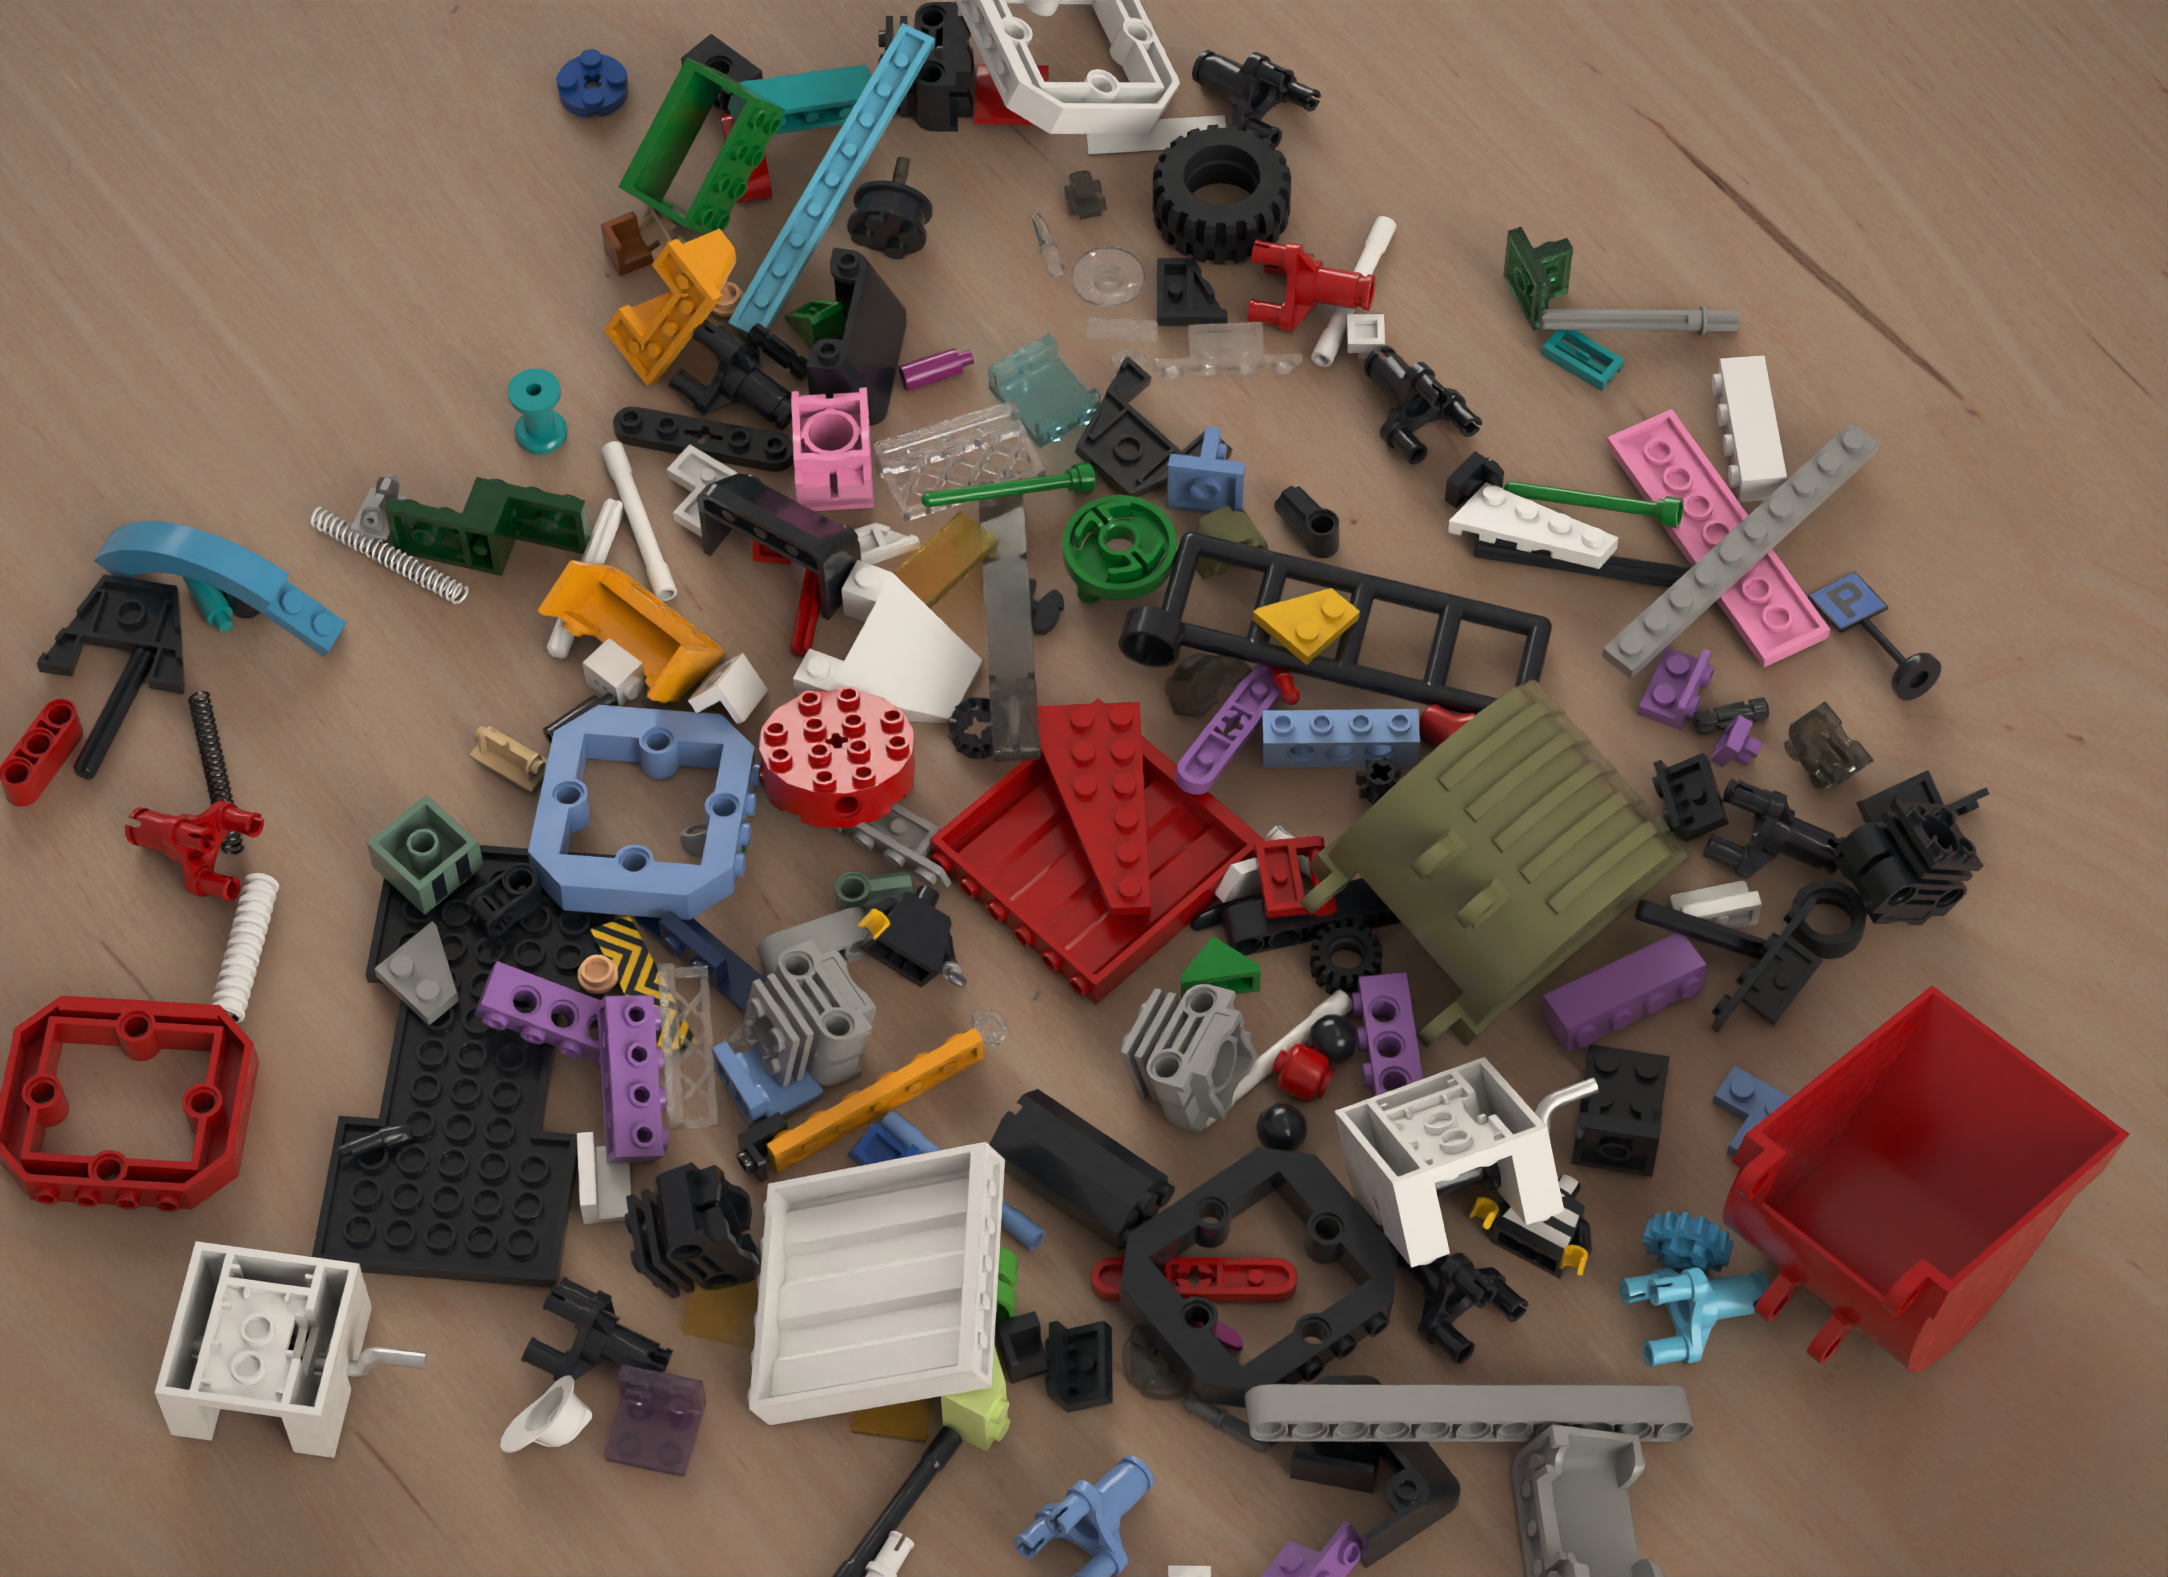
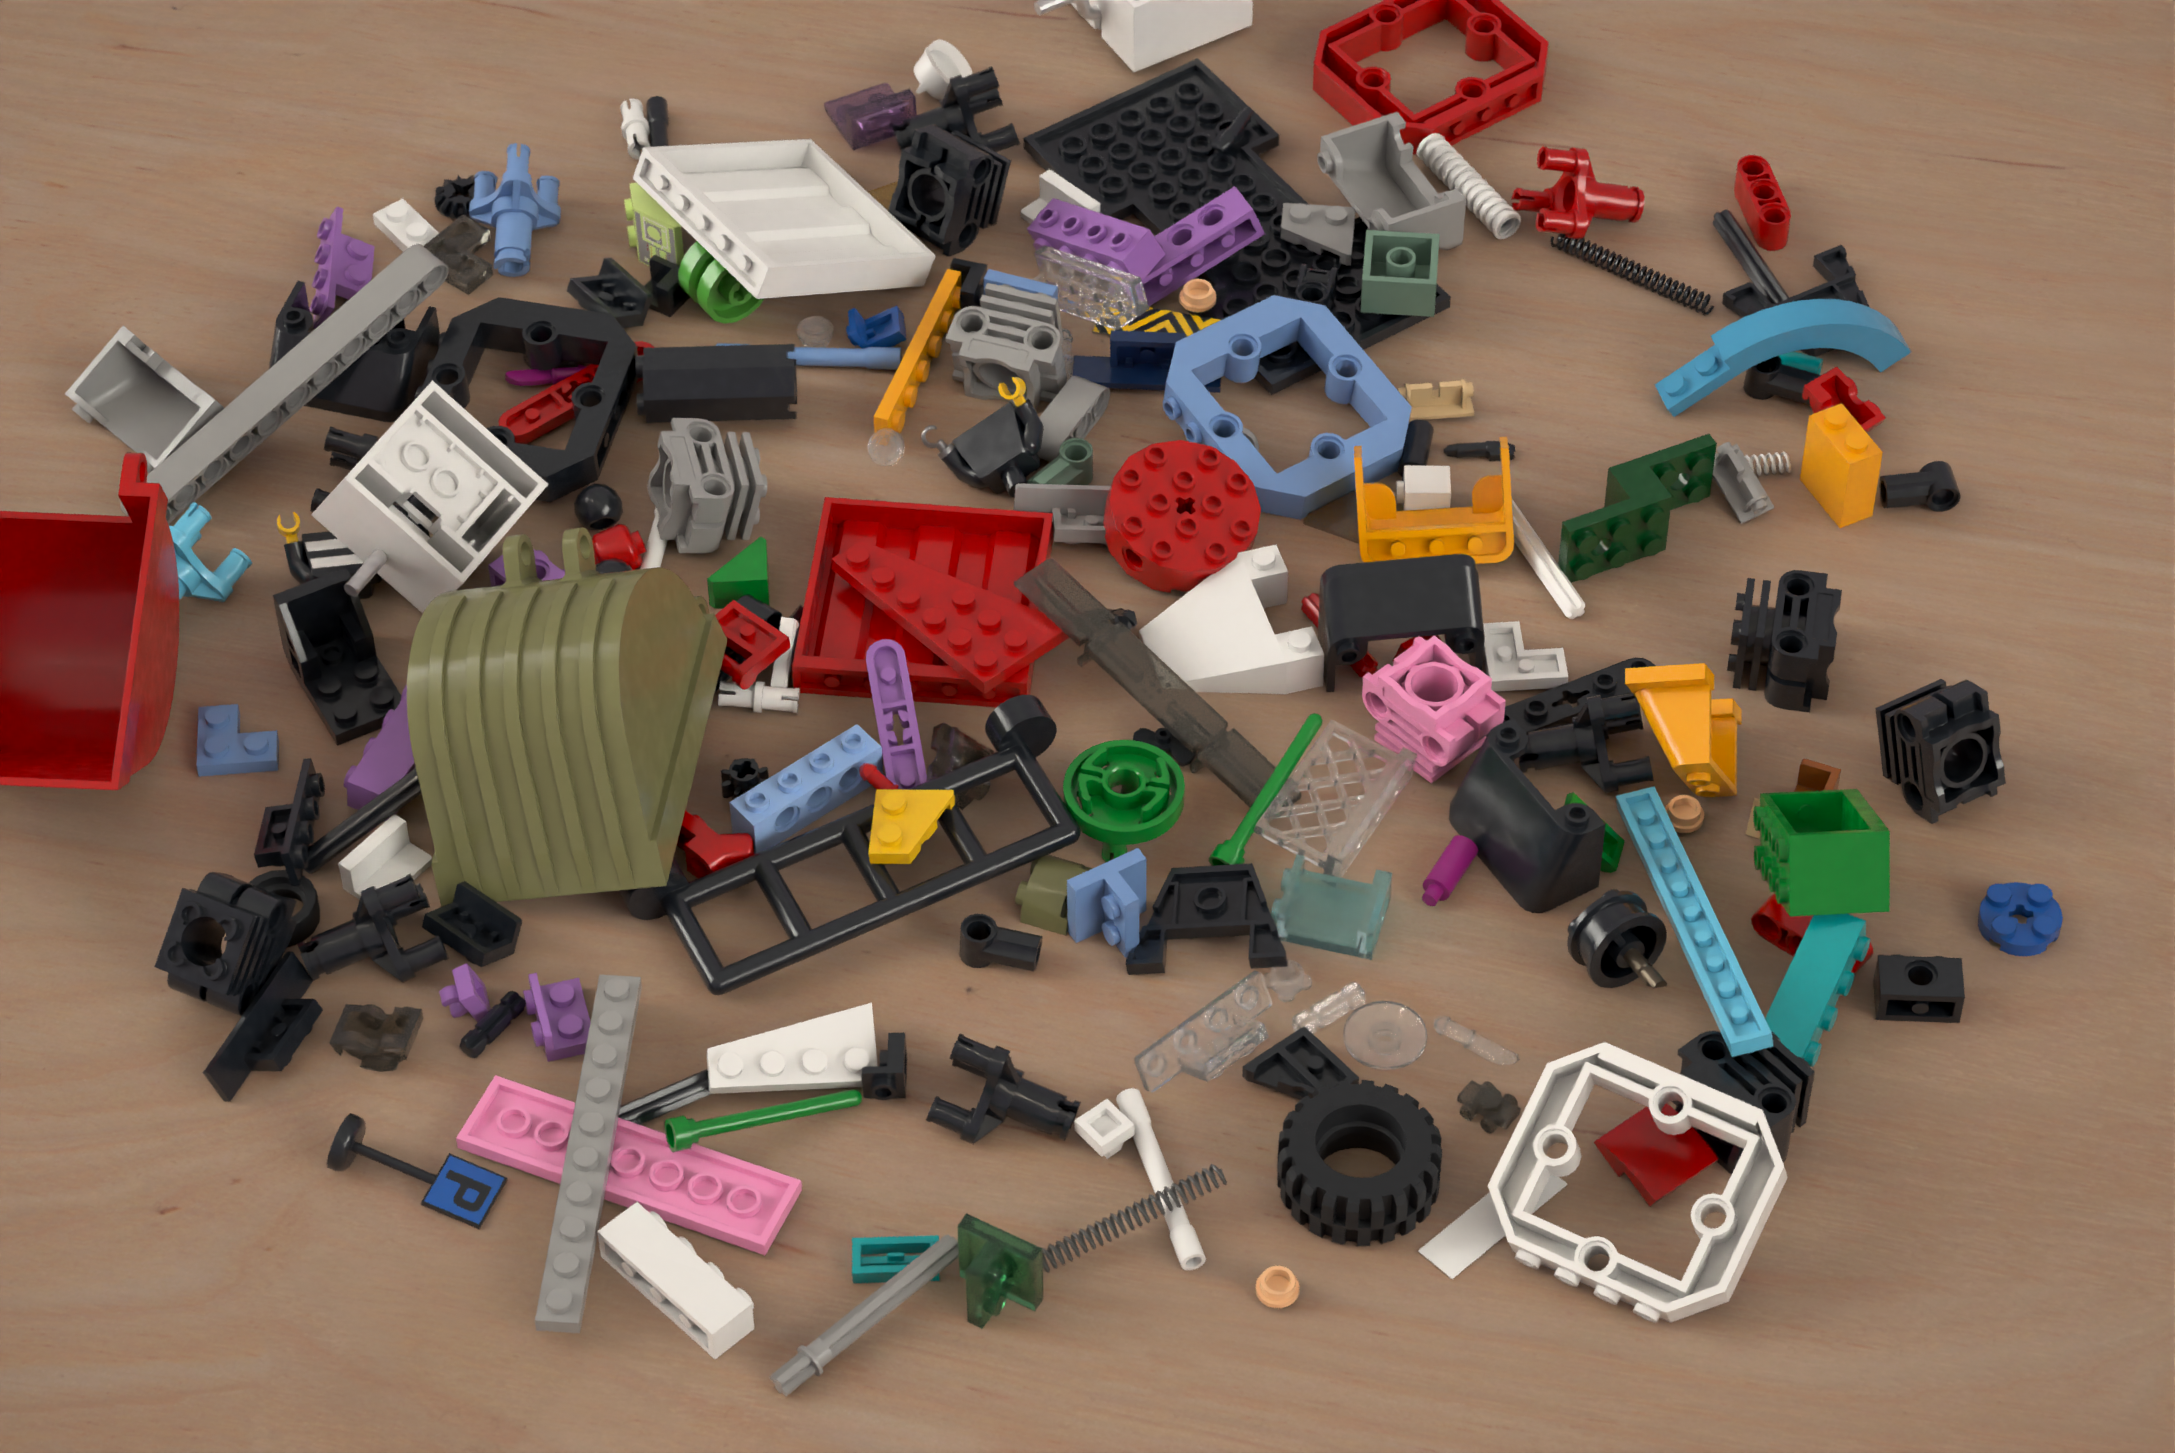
camera: 140 degrees right, 10 degrees down
(228, 511) = (1837, 388): none -> red cylinder
(246, 415) = (1930, 486): none -> black piece
(304, 447) = (1840, 465): none -> light orange brick
(330, 952) = (1386, 185): none -> light grey windscreen
(503, 338) = (1791, 639): none -> black piece
(514, 689) = (1486, 449): none -> black piece
(517, 189) = (1941, 746): none -> black piece
(535, 395) = (1709, 588): teal piece -> none
(656, 568) = (1599, 634): white piece -> none
(734, 685) = (1319, 522): white panel -> none
(778, 350) = (1590, 791): black axle -> none
(881, 543) = (1346, 708): white tile -> none
(946, 559) = (1263, 717): clear yellow piece -> none
(1180, 1538) = (456, 249): none -> clear smoke plate
(1253, 89) = (1436, 1288): black wheel -> none
(1306, 285) = (1200, 1131): red wheel -> none
(1347, 172) = (1277, 1287): none -> light nougat plate
(1406, 264) = (1126, 1215): none -> dark grey piece
(1687, 1242) = (214, 596): dark azure gear -> none

